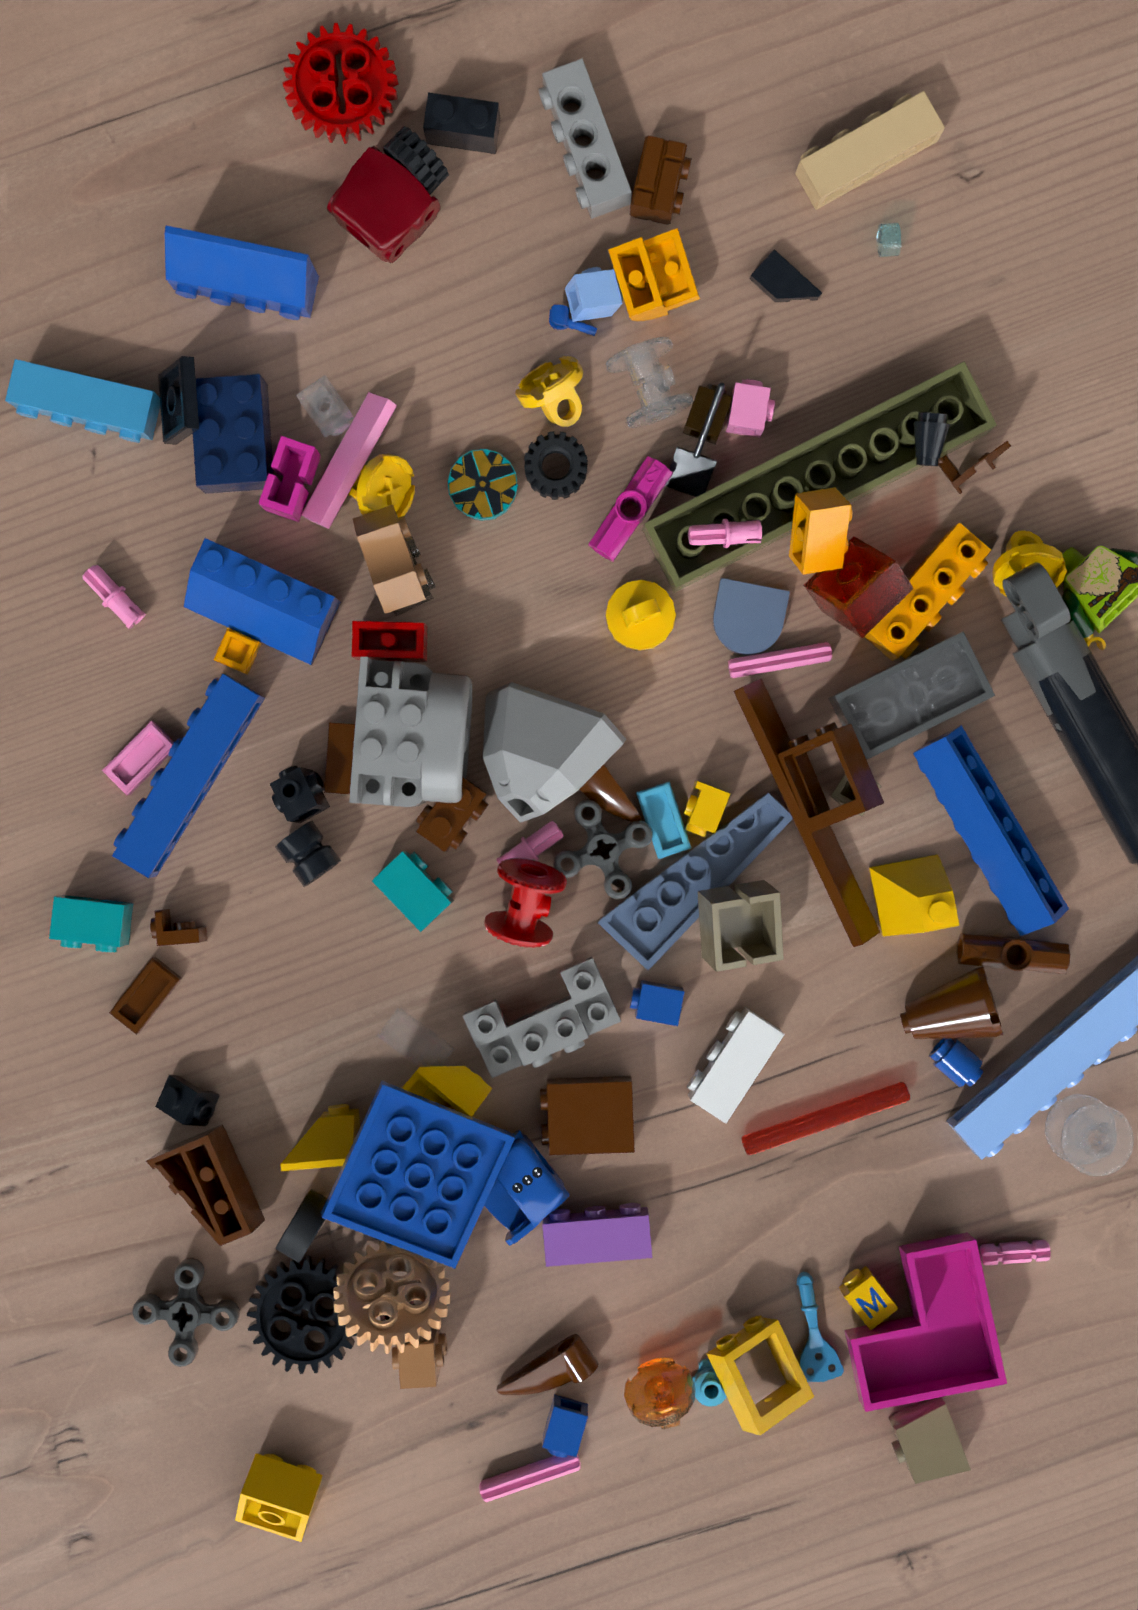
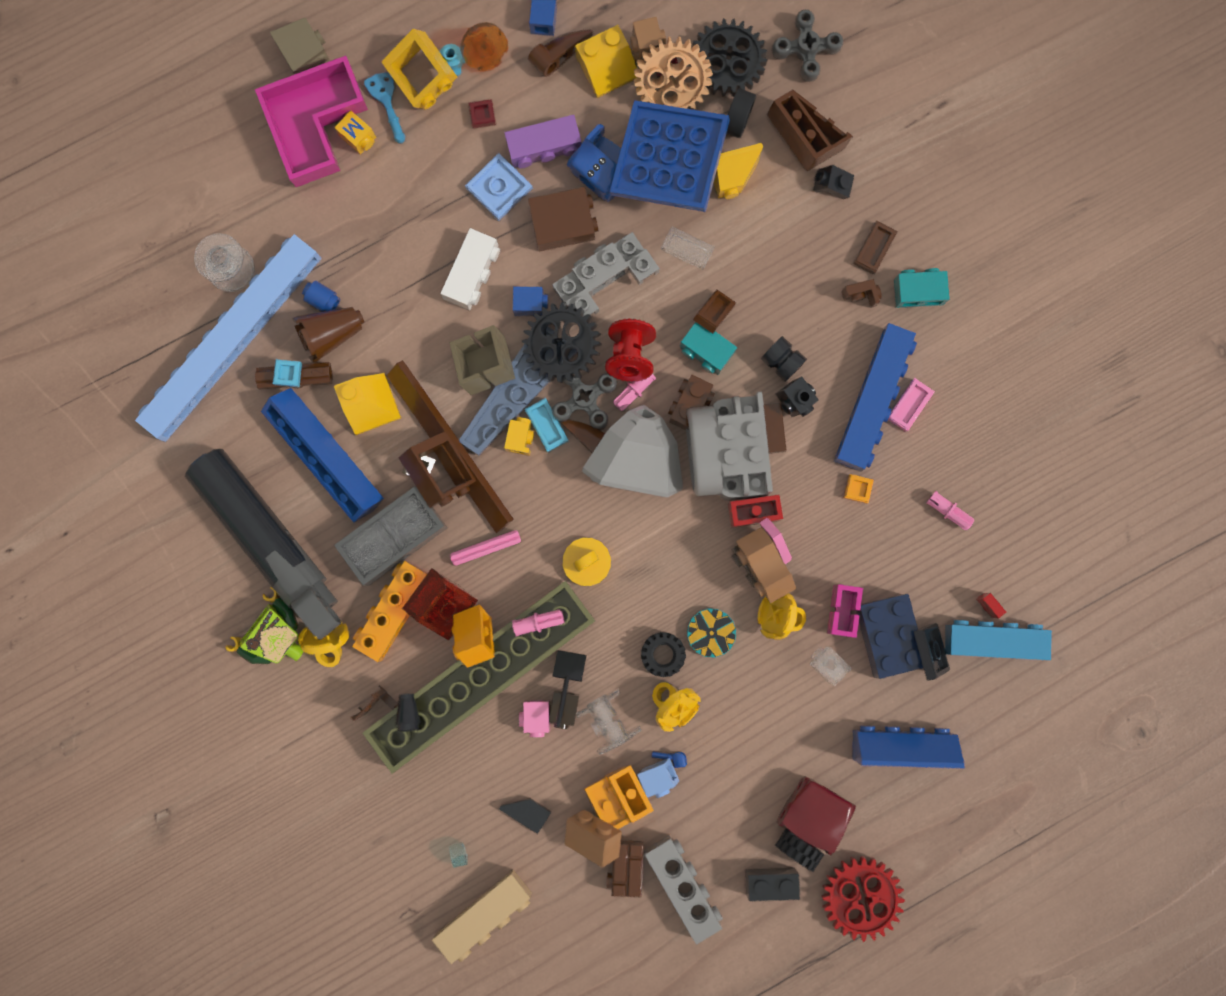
camera: 175 degrees right, 5 degrees down
(82, 452) = (991, 605): none -> red tile
(259, 601) = (849, 525): blue slope -> none
(349, 460) = (807, 632): bright pink tile -> none
(367, 593) = (778, 540): none -> bright pink tile
(394, 939) = (714, 311): none -> reddish brown tile
(450, 1086) = (659, 219): yellow slope -> none
(483, 1340) = (606, 61): none -> yellow slope
(591, 923) = (539, 342): none -> black gear
(643, 491) = (598, 648): dark pink piece -> none
(673, 1181) = (498, 186): none -> light blue tile
(678, 1294) = (482, 113): none -> dark red tile
(699, 225) = (593, 838): none -> medium nougat brick
(748, 616) = (512, 574): sand blue tile -> none
(825, 1118) = (403, 245): clear red axle -> none
(1015, 1252) = (261, 179): bright pink axle -> none
(1023, 955) = (287, 373): none -> medium azure tile

